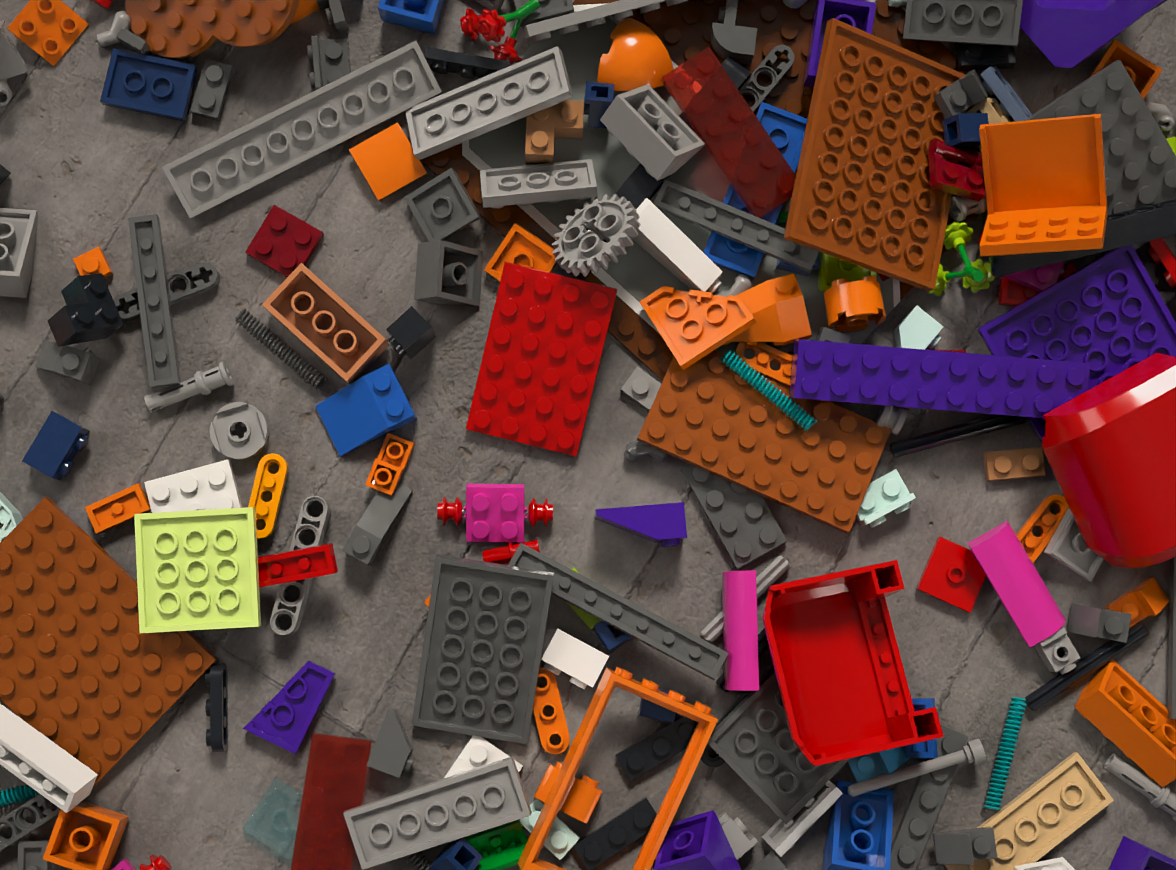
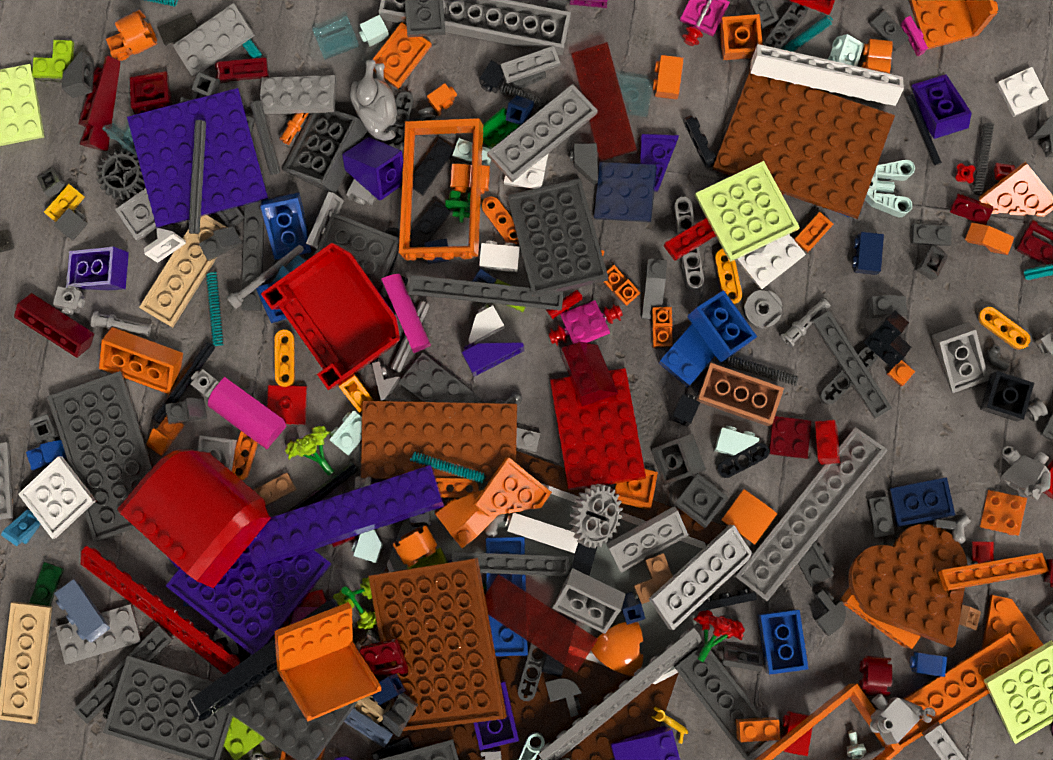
camera: 165 degrees right, 0 degrees up
(218, 823) = (669, 77): none -> orange brick
(237, 211) = (827, 442): none -> red brick
(307, 426) = (722, 326): none -> blue brick
(341, 247) = (753, 449): none -> black beam
(356, 677) = (625, 192): none -> dark blue plate
(363, 265) = (732, 442): none -> light aqua slope
(421, 546) = (620, 286): none -> orange slope
(520, 440) = (588, 372): none -> dark red slope
(606, 765) = (454, 203): none -> green hips
(634, 570) = (485, 324): none -> white slope
(810, 543) = (384, 386): none -> light grey slope
(852, 548) = (355, 391): none -> light orange slope
(942, 630) = (281, 350): none -> light orange plate
(951, 498) = (308, 446): none -> lime plant

